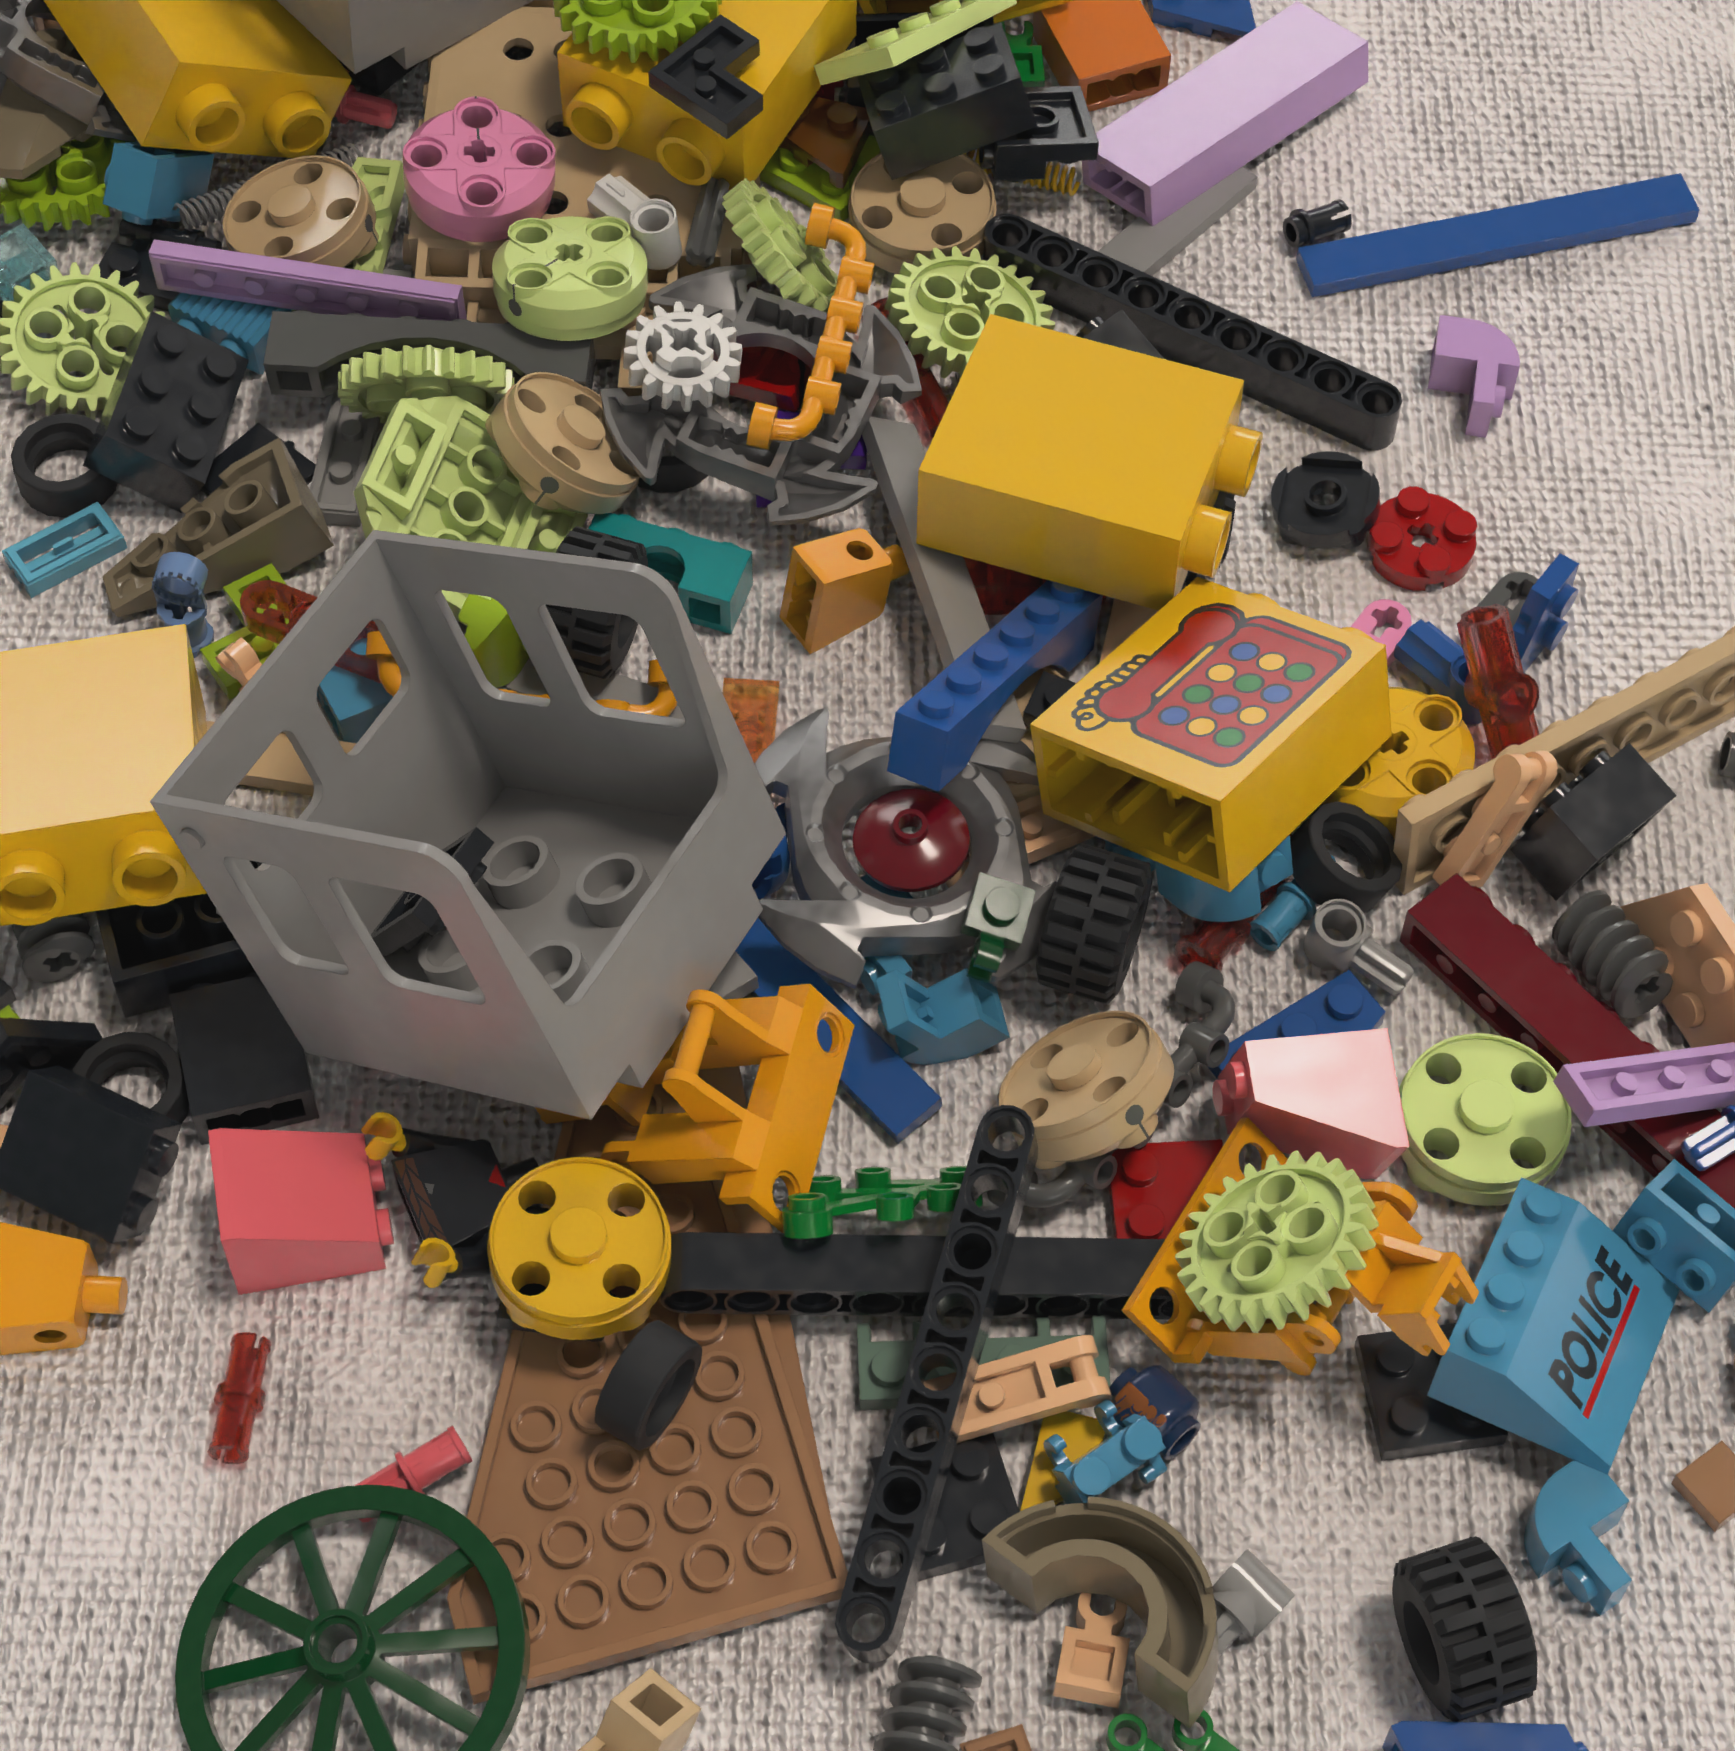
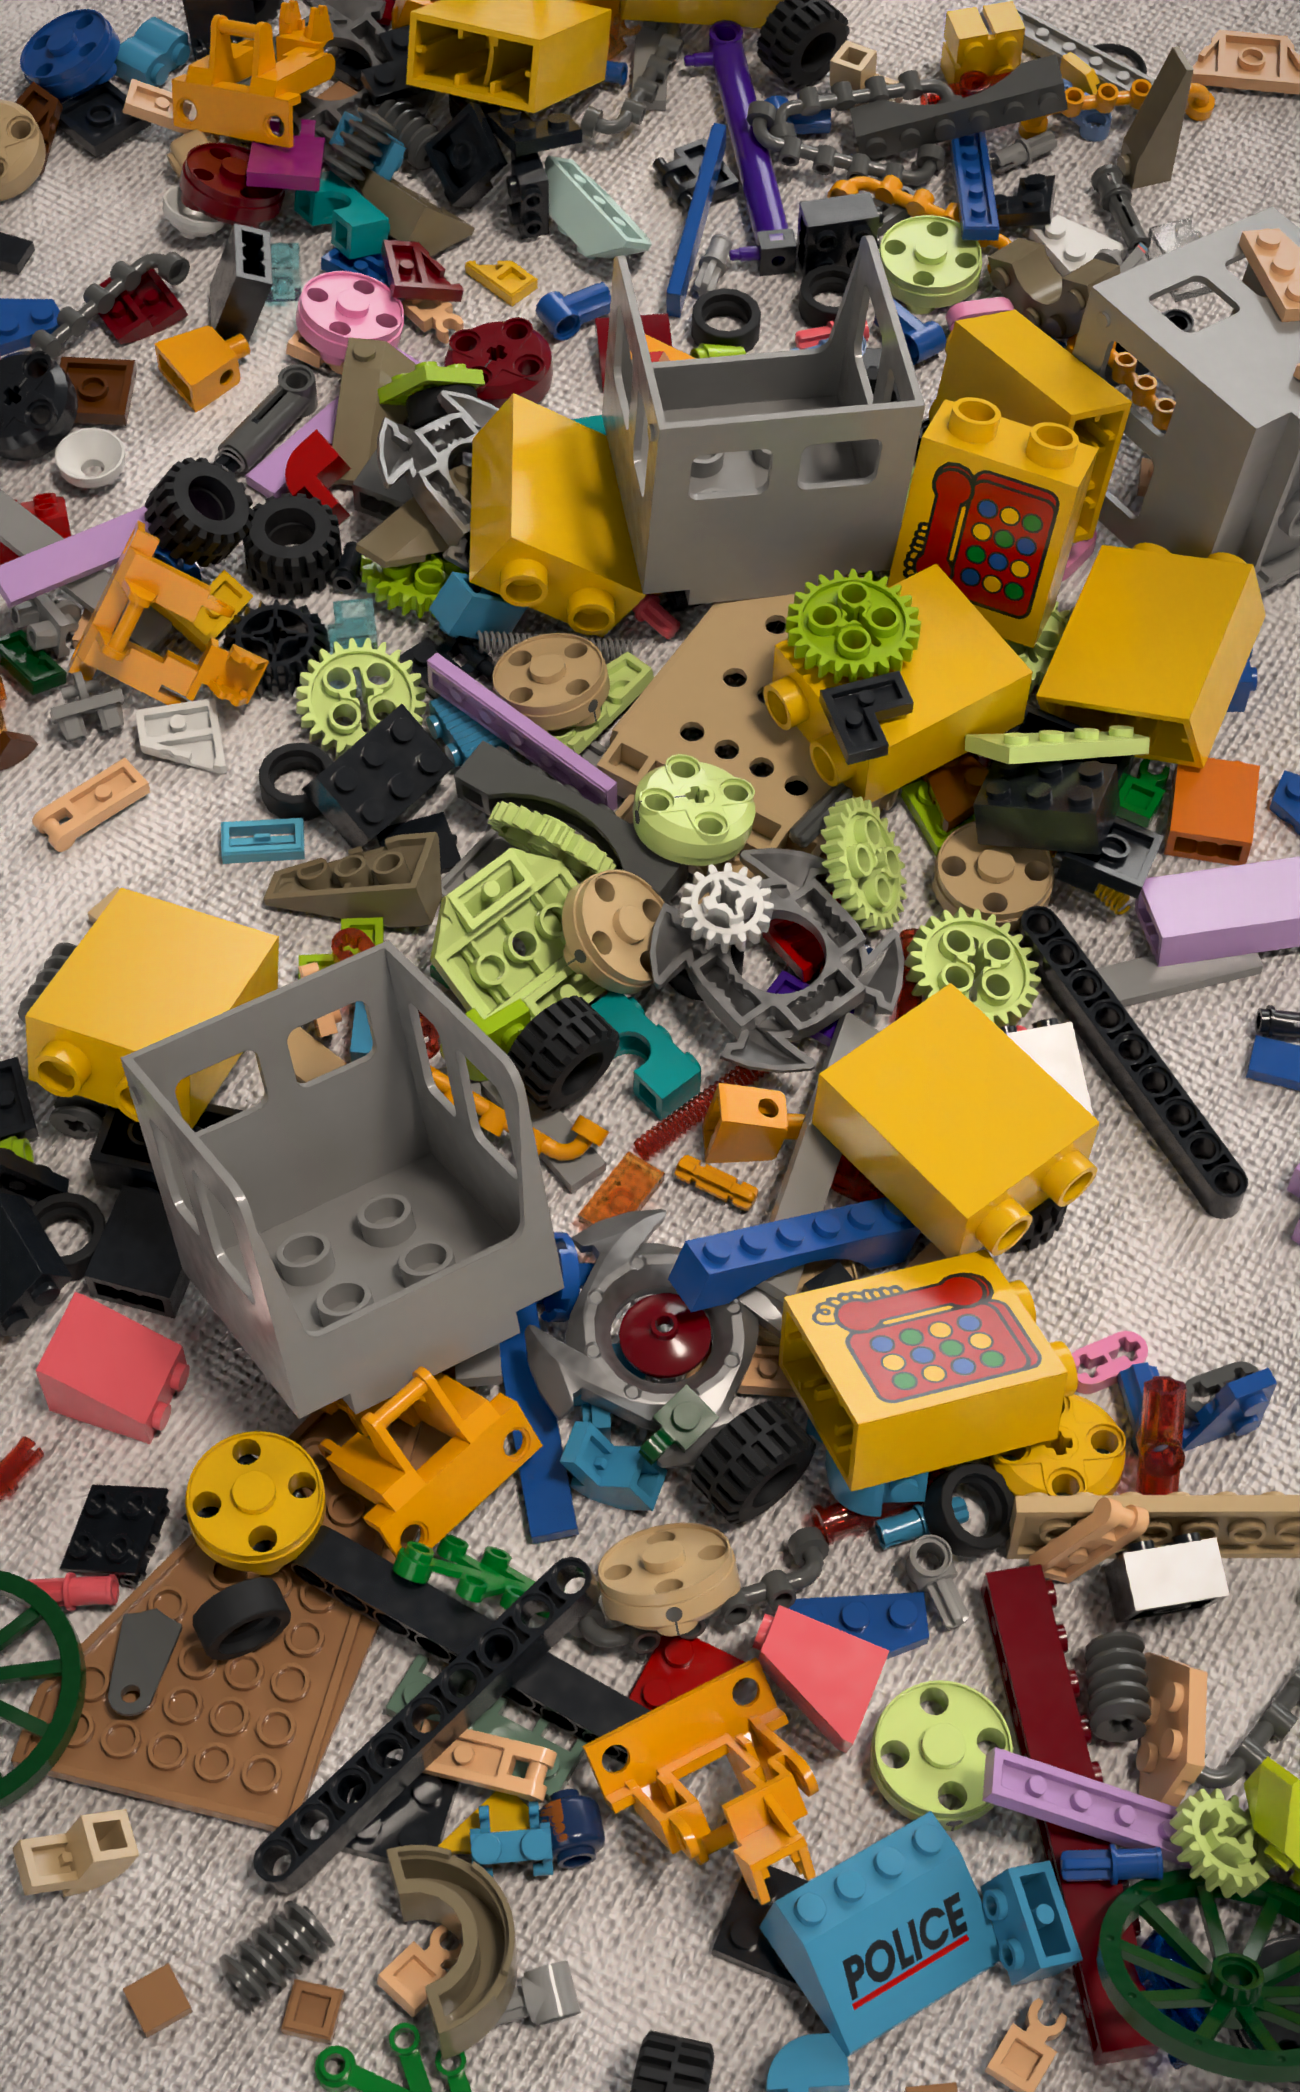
camera: 30 degrees right, 0 degrees up
(177, 594) = (302, 918): medium blue connector -> none
(413, 914) = (301, 1213): black plate -> none
(417, 1380) = (117, 1531): none -> black hinge
(448, 1193) = (211, 1409): torso -> none
(478, 171) = (684, 704): bright pink piece -> none
(551, 1498) = (141, 1658): none -> dark grey piece
(651, 220) = (772, 793): white piece -> none
(767, 602) = (657, 1140): none -> clear red piece
(832, 351) = (837, 953): light orange bar -> none
(839, 666) = (716, 1182): none -> light orange axle
(1276, 1241) = (704, 1758): yellowish green gear -> none
(1331, 525) = (1143, 1259): black plate -> none
(1426, 515) = (1202, 1279): red plate -> none

